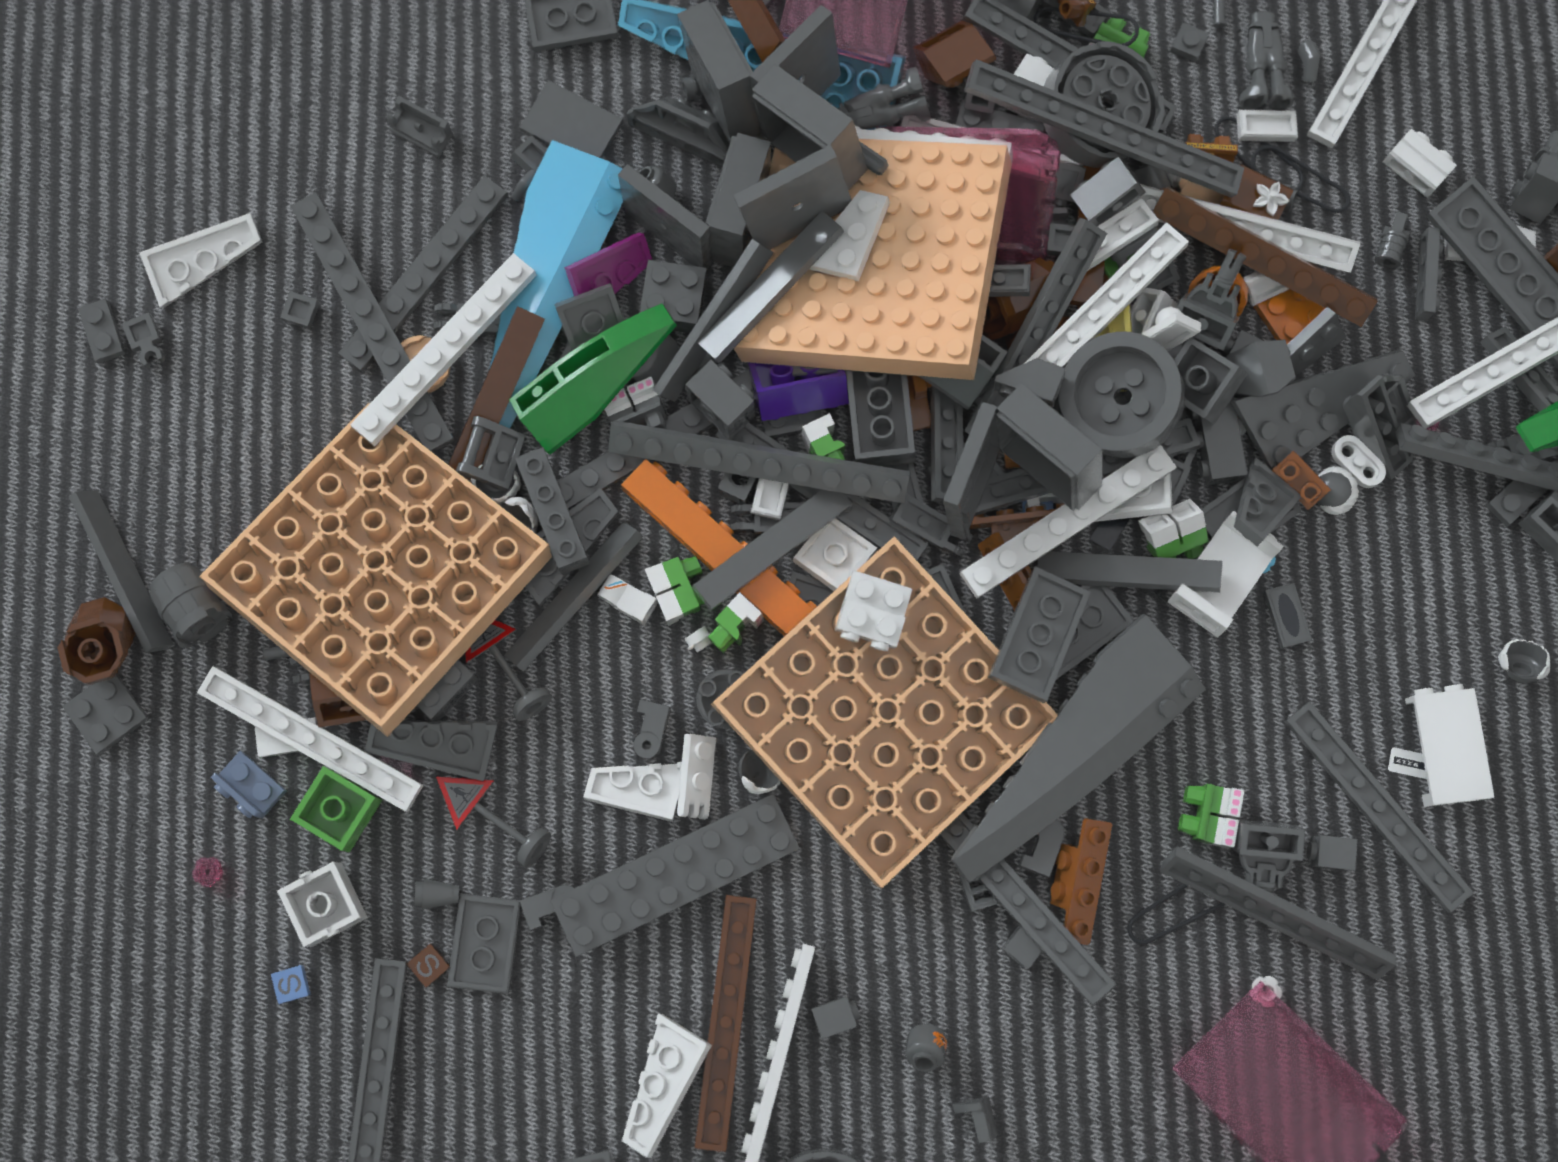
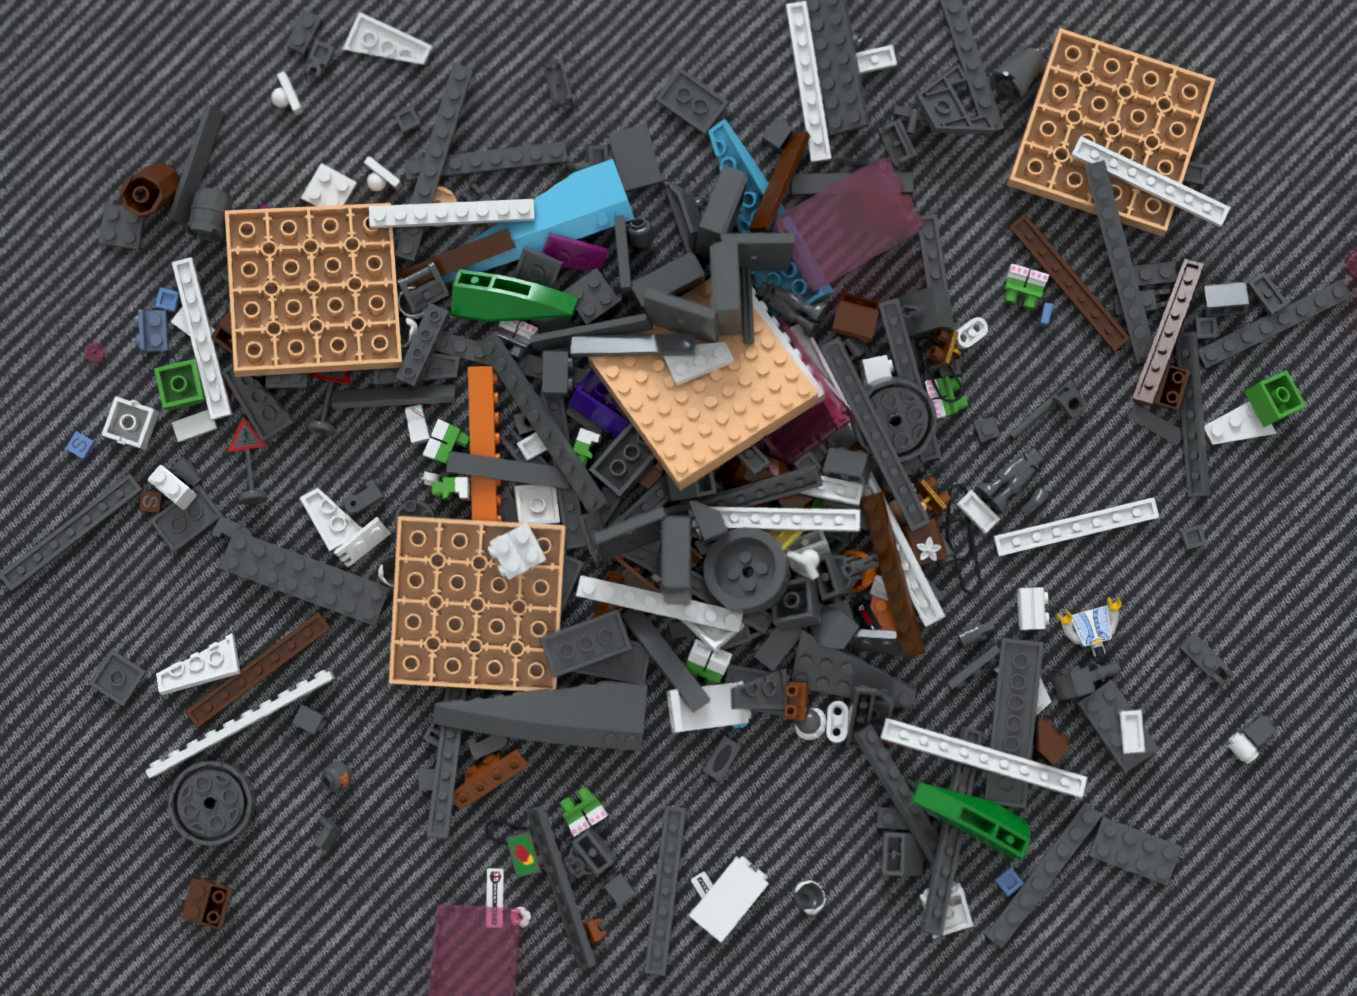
camera: 50 degrees right, 5 degrees up
(146, 407) = (283, 96): none -> white tile
(232, 738) = (167, 300): none -> medium blue tile
(286, 456) = (328, 188): none -> white plate
(330, 391) = (380, 176): none -> white tile
(394, 838) = (194, 426): none -> white tile
(436, 924) = (172, 487): none -> white brick
(1201, 918) = (524, 853): none -> brick
(1207, 990) = (494, 888): none -> white sticker
(1274, 329) = (866, 615): none -> black sticker
(1359, 926) = (592, 930): none -> dark orange tile
(1495, 118) = (1092, 626): none -> torso

